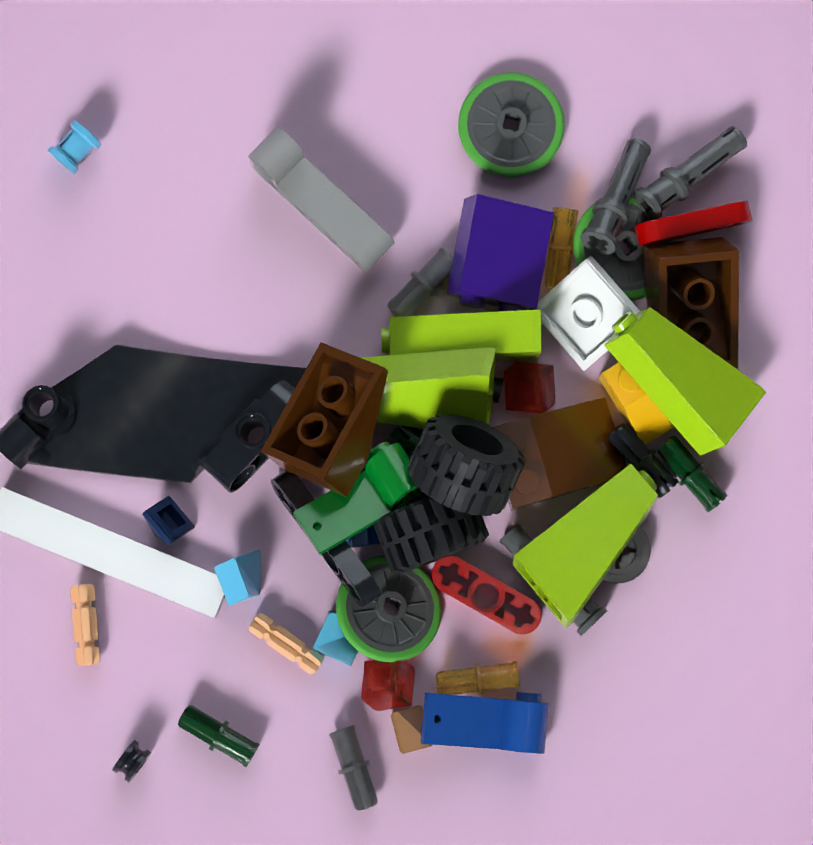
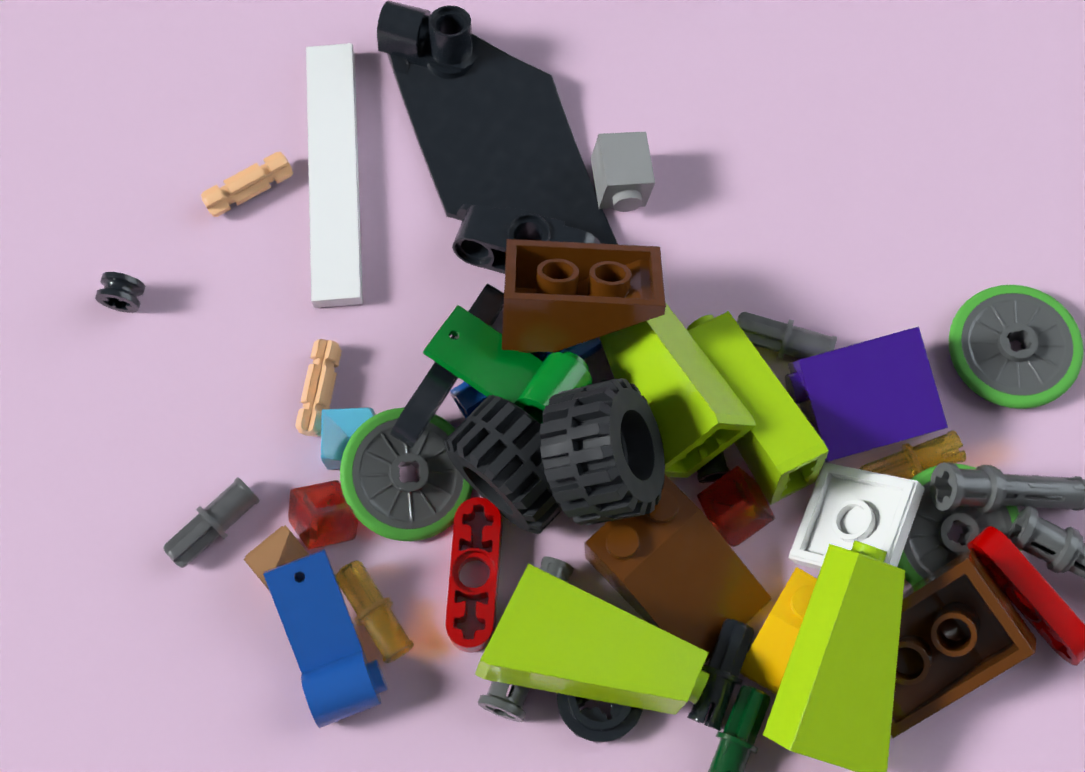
camera: 65 degrees right, 15 degrees down
(167, 520) = (394, 208): dark blue slope -> none
(218, 735) = (186, 367): dark green axle -> none
(230, 333) = (622, 170): none -> light grey brick
(240, 577) = (367, 304): medium azure slope -> none
(319, 200) = (815, 185): light grey beam -> none

